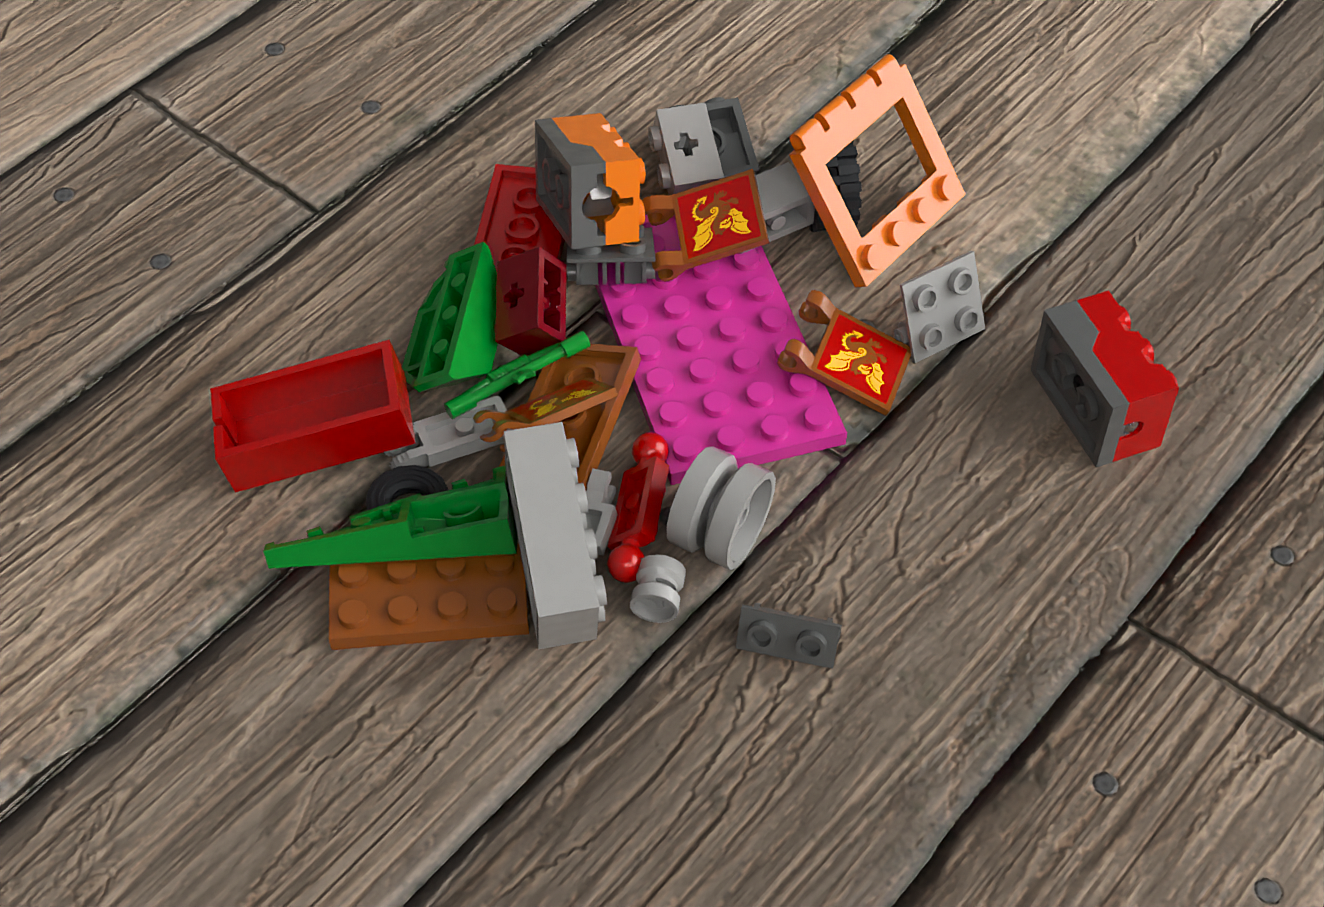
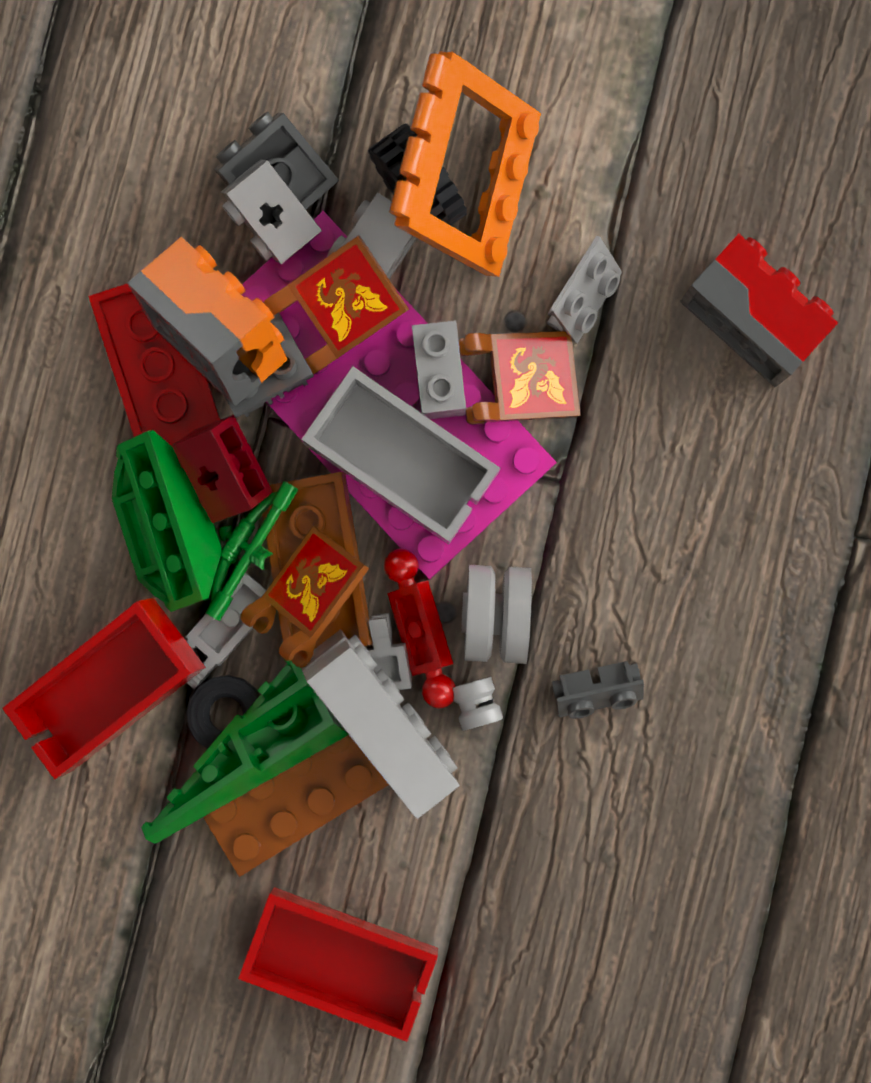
camera: 25 degrees left, 35 degrees up
(378, 747) = (339, 964): none -> red piece
(701, 347) = (400, 455): none -> light grey piece
(771, 305) = (439, 369): none -> light grey brick

